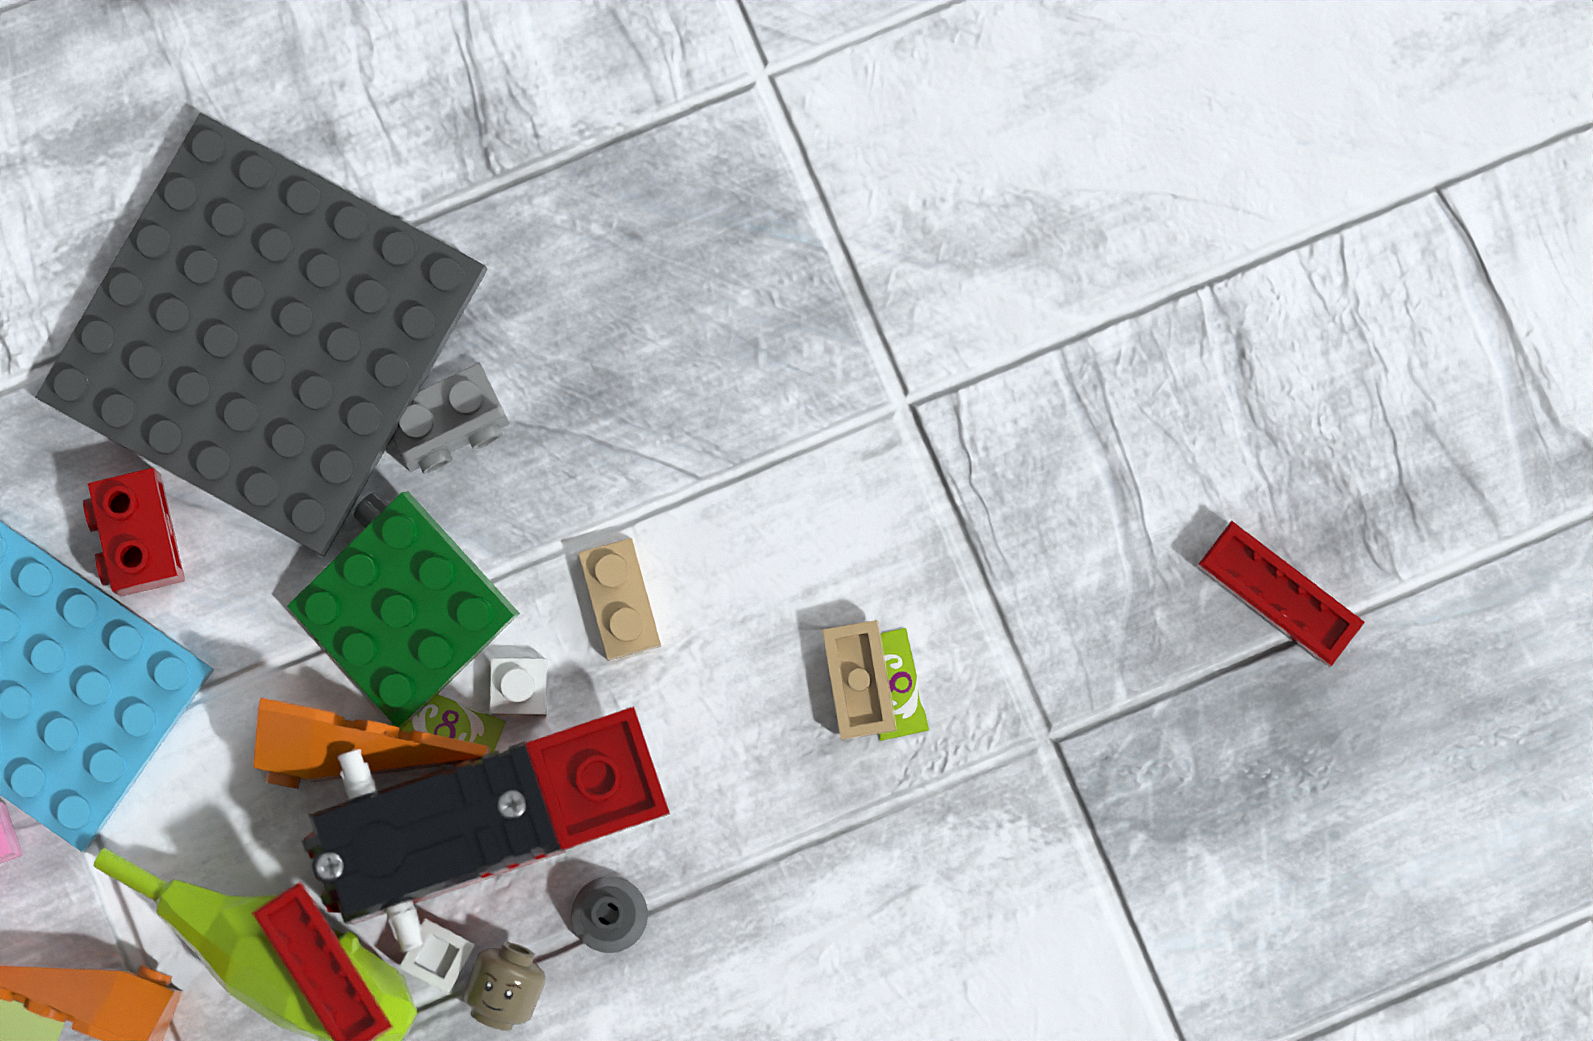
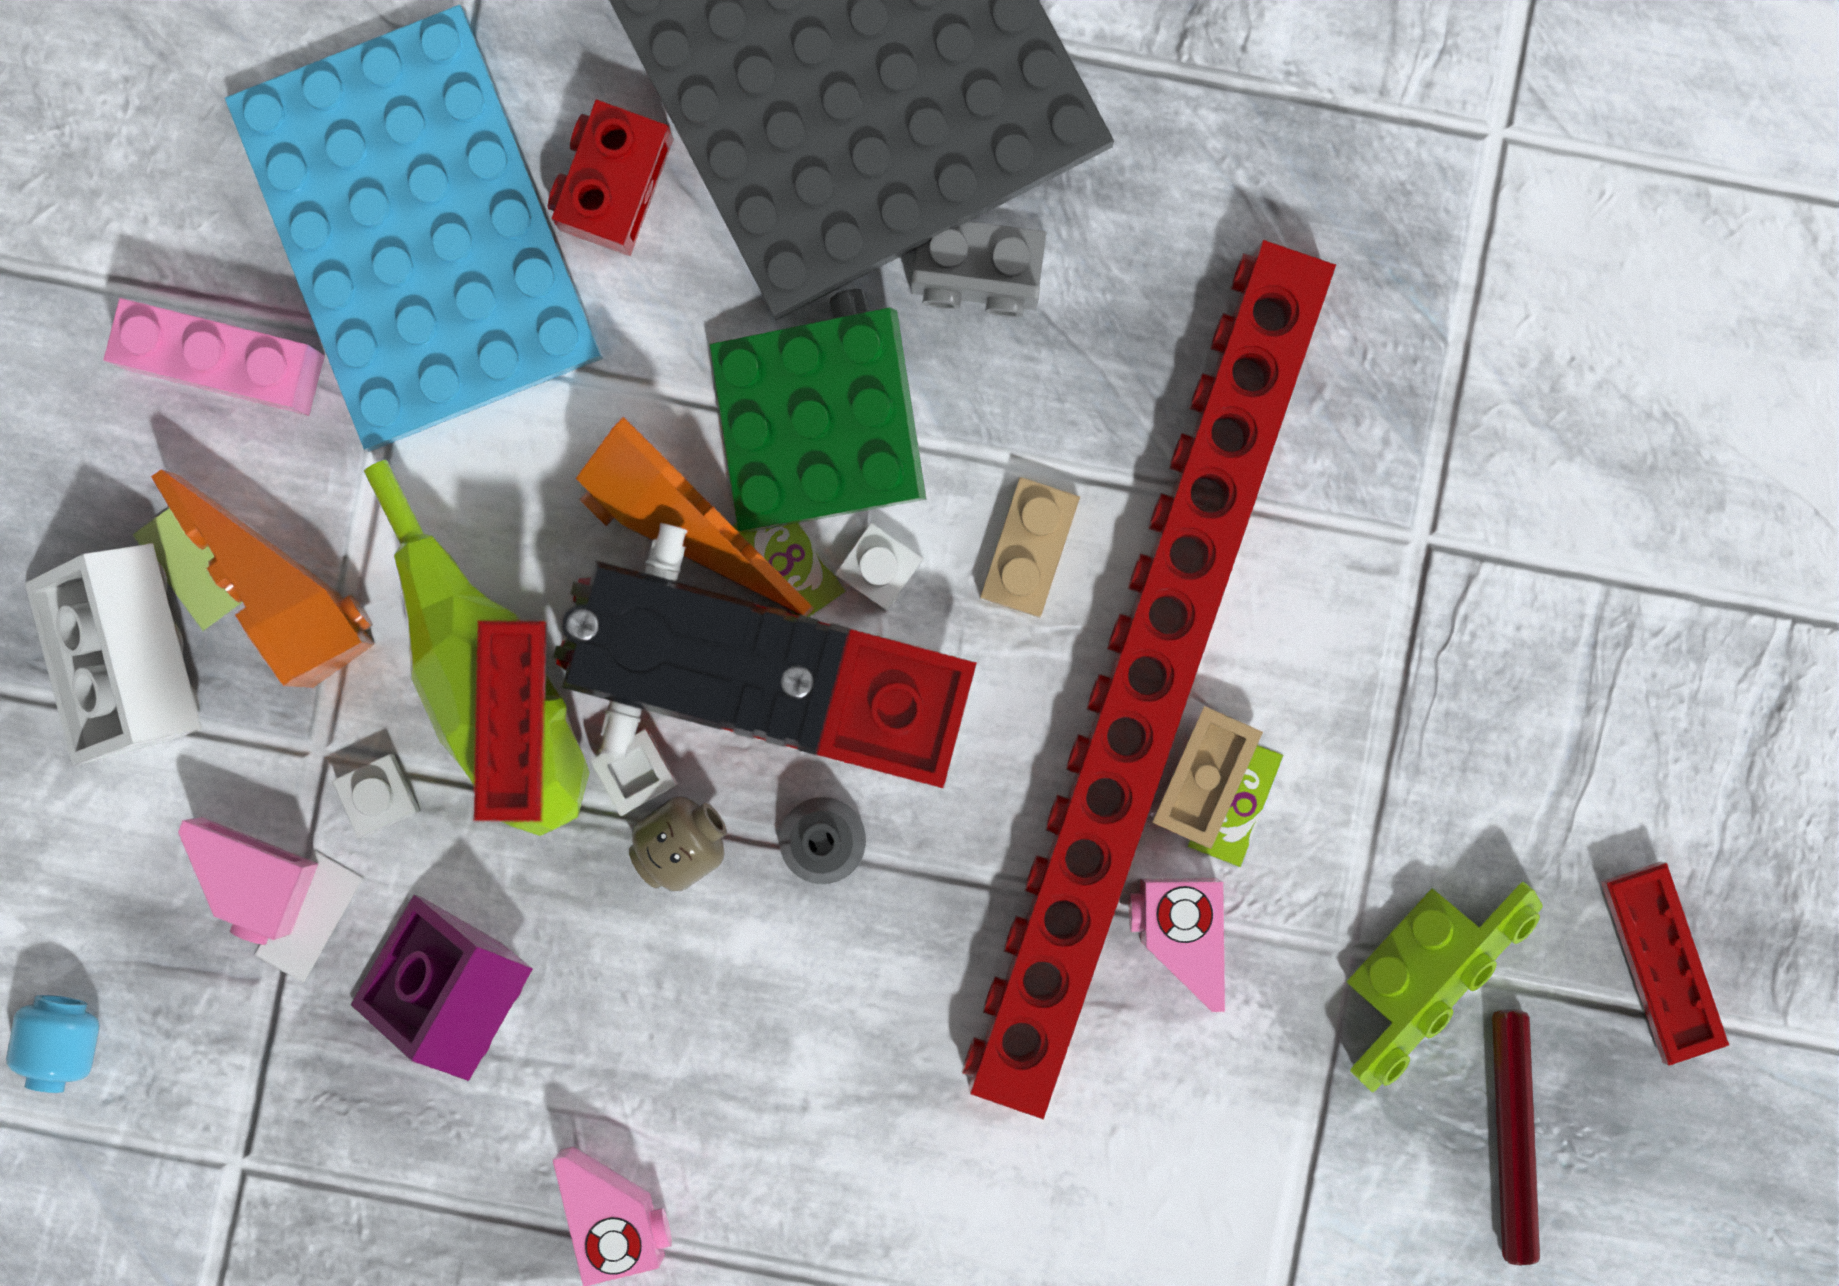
camera: 30 degrees right, 5 degrees up
(689, 282) = (1299, 288): none -> red brick
(917, 804) = (1185, 930): none -> bright pink slope
(1114, 711) = (1427, 969): none -> lime bracket
(1259, 792) = (1516, 1137): none -> dark red axle

